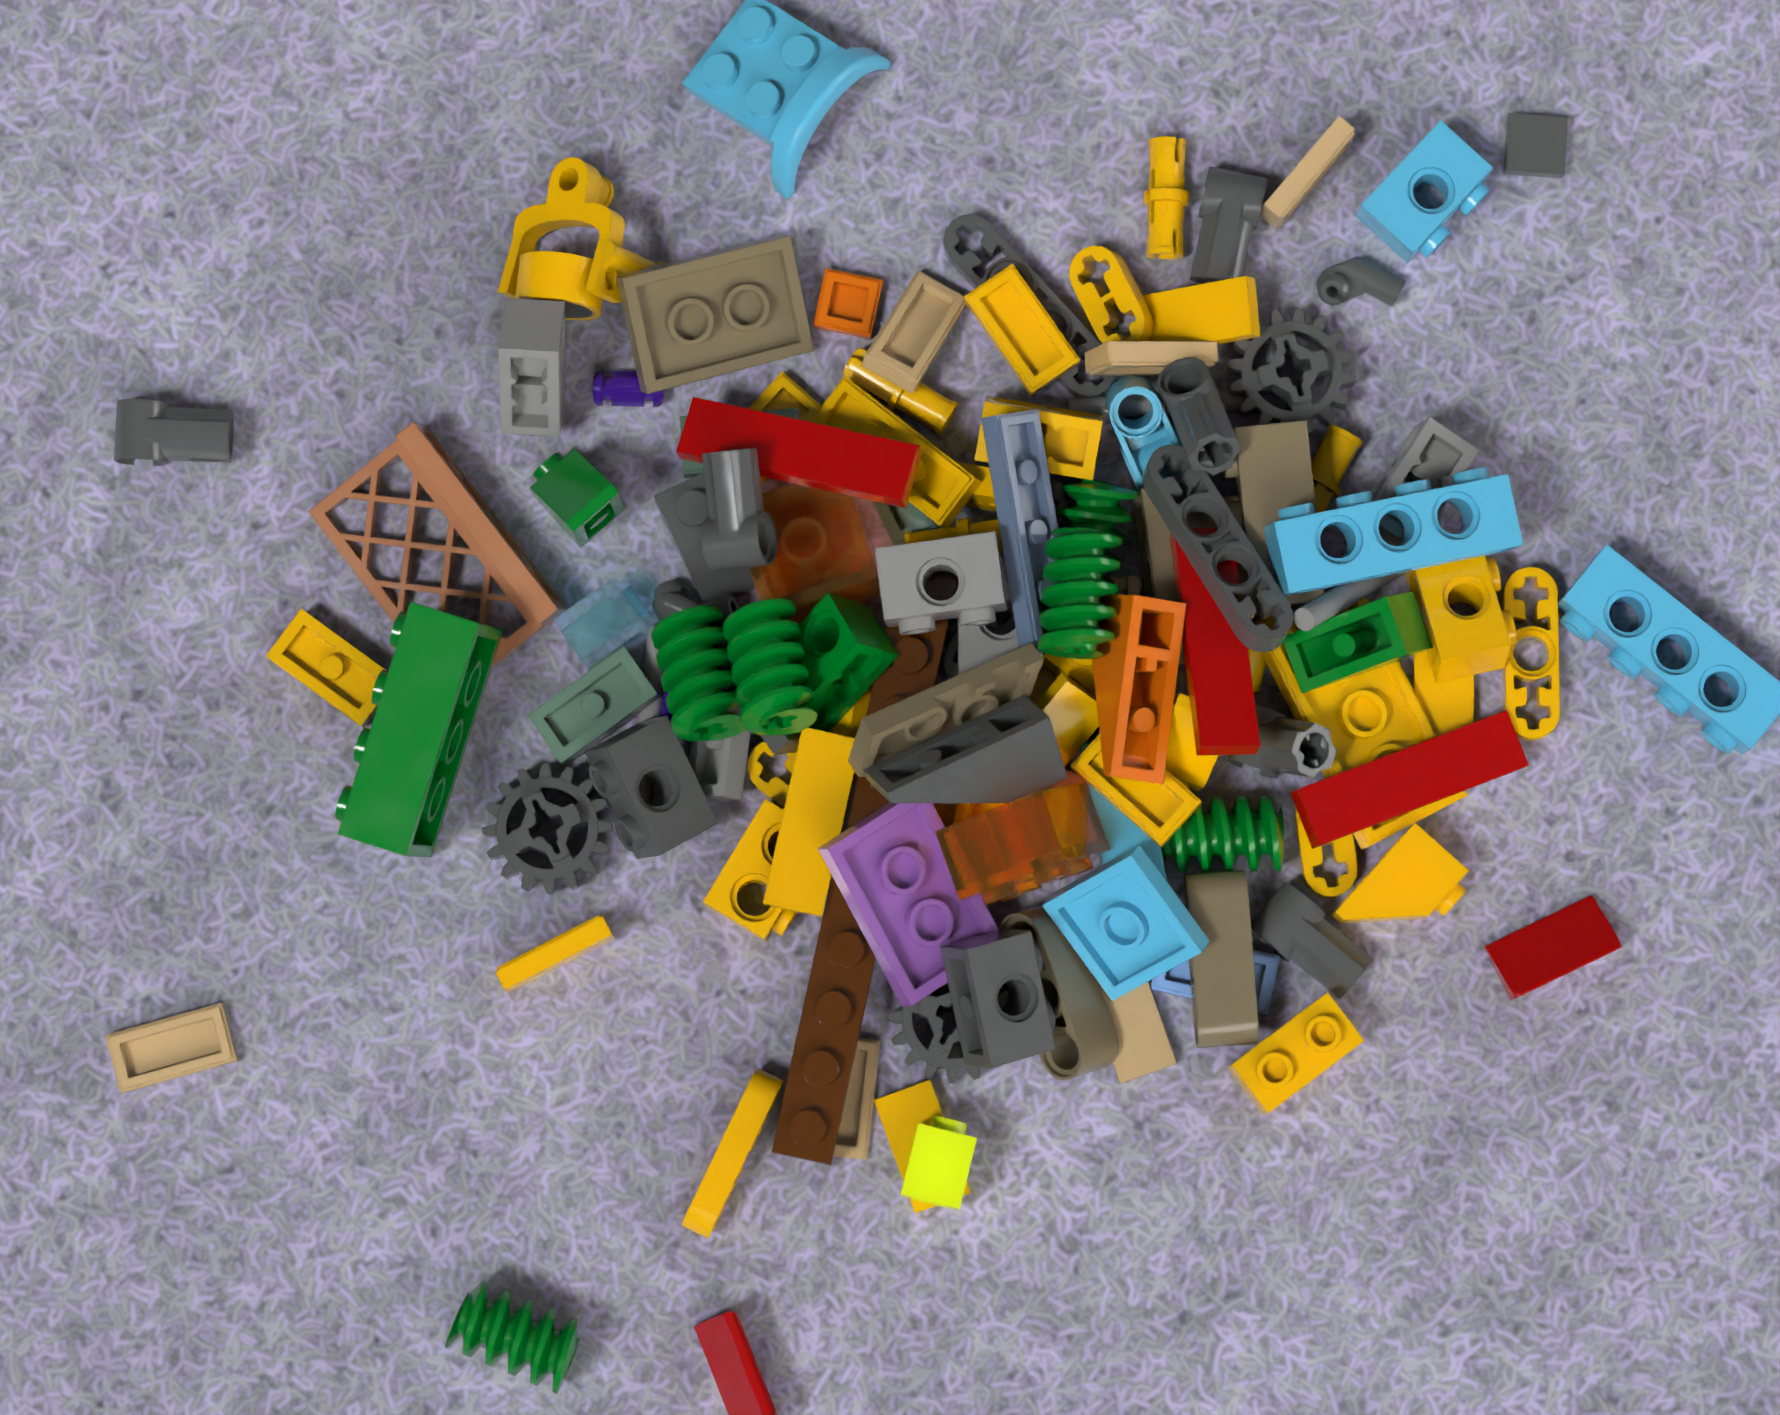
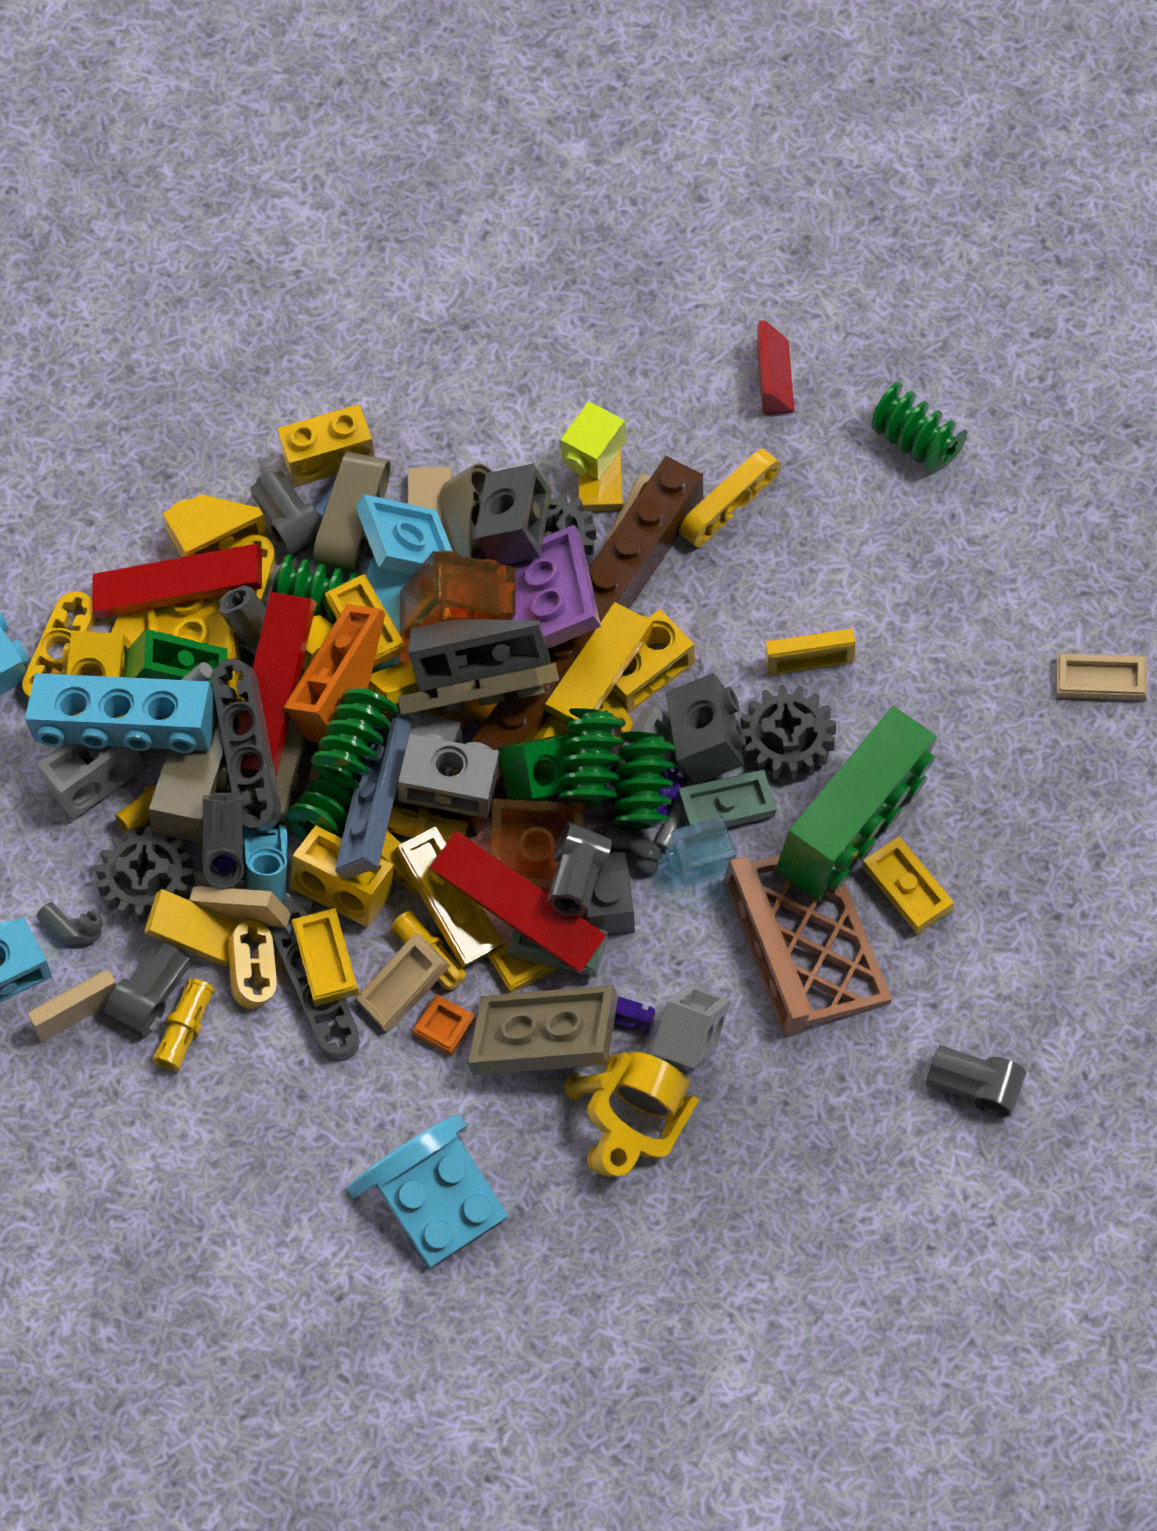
camera: 155 degrees left, 20 degrees down
(576, 495) = (689, 934): green slope -> none
(1552, 947) = (126, 464): red slope -> none

